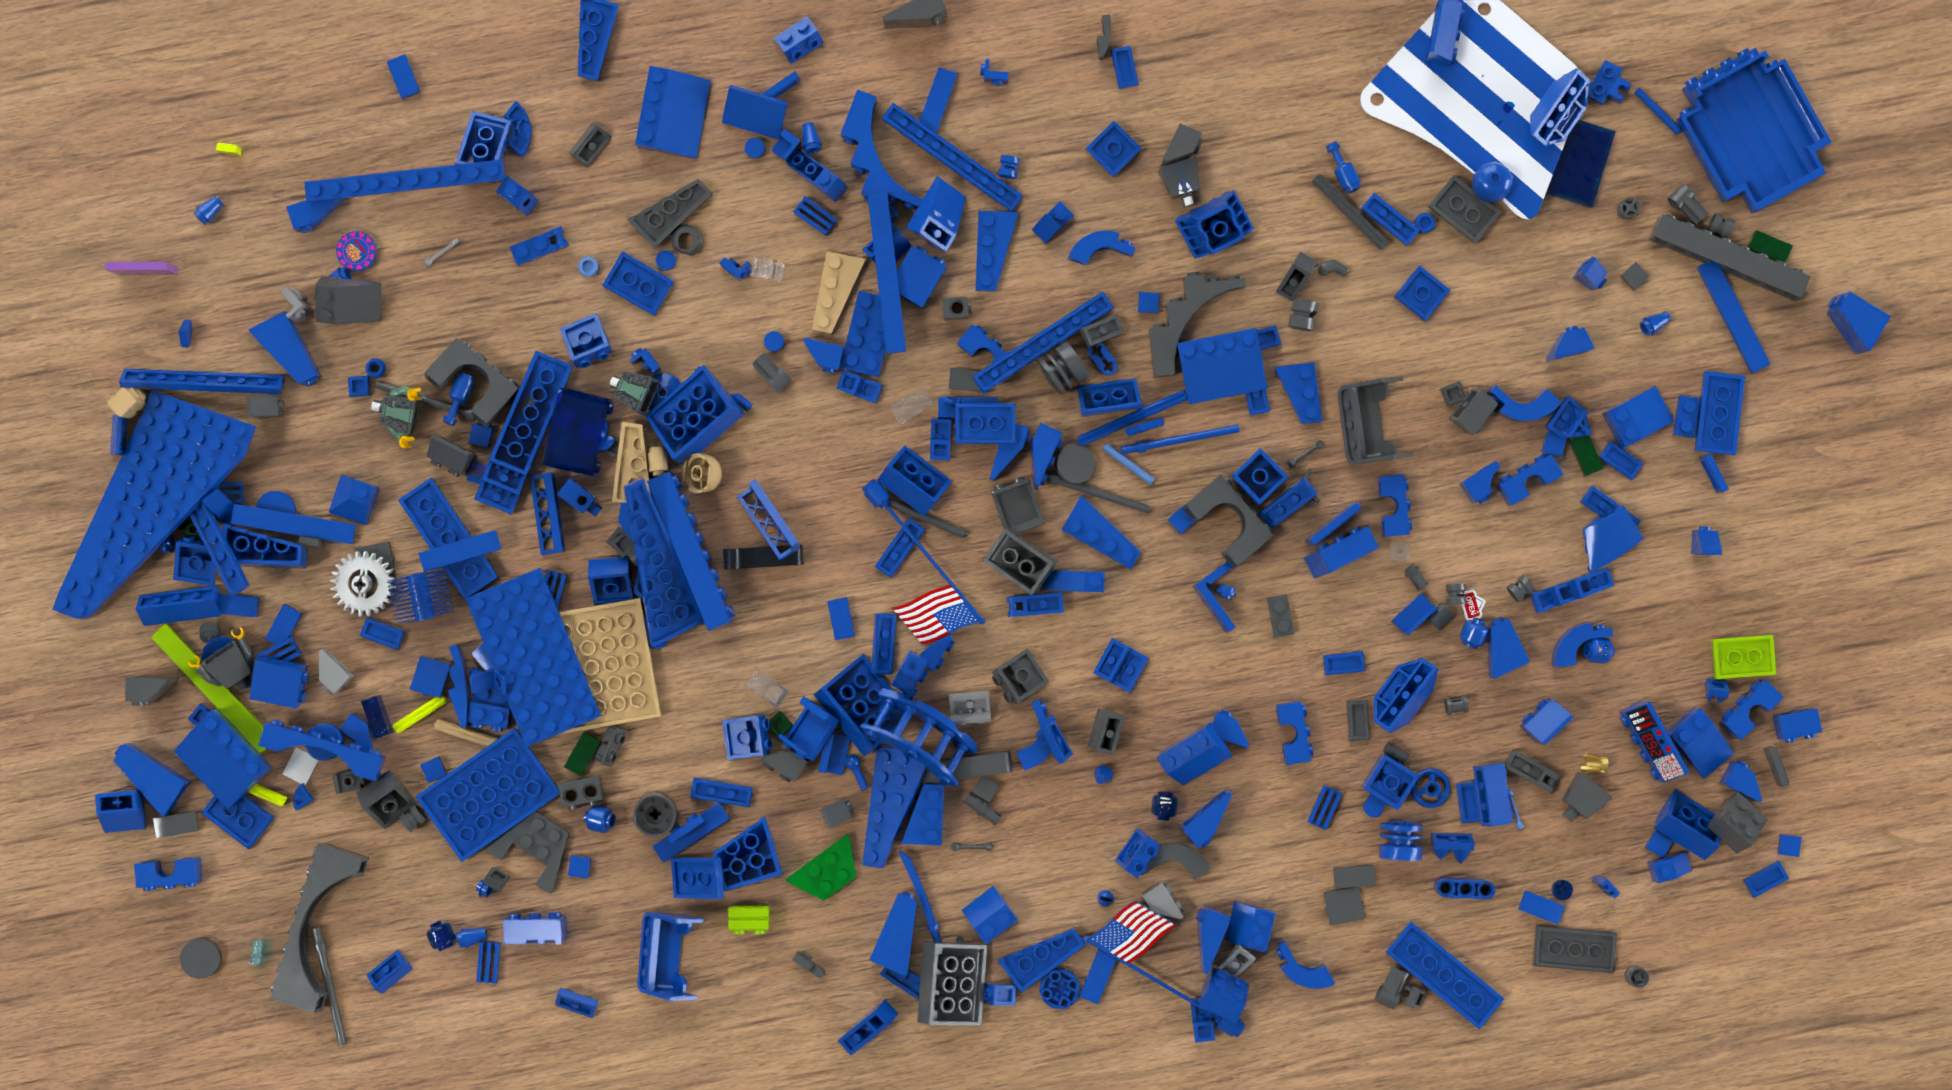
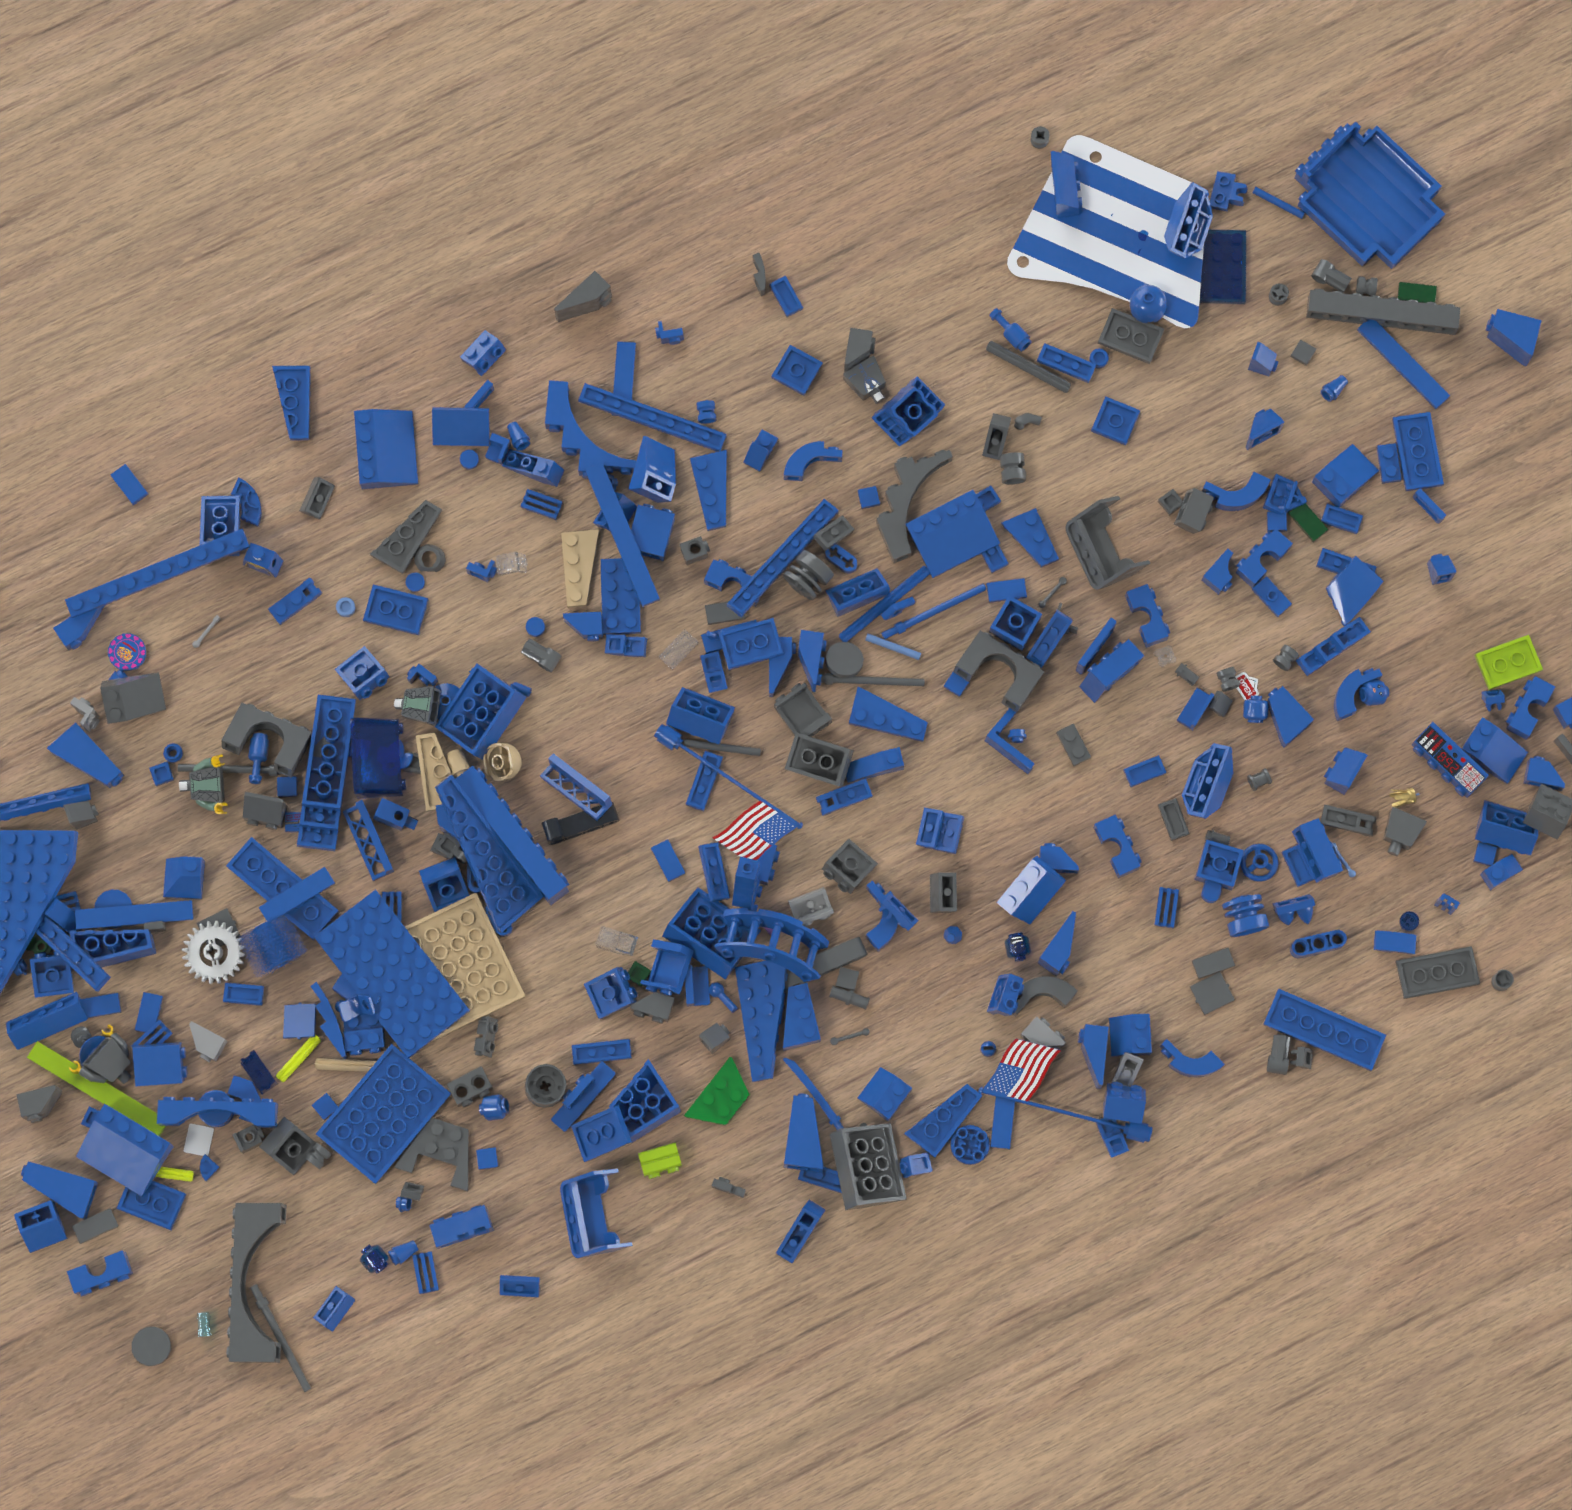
camera: 10 degrees left, 10 degrees down
(582, 754) = (461, 1052): dark green tile -> none
(1259, 438) = (1001, 590): none -> blue tile
(1525, 521) = (1271, 596): none -> blue plate

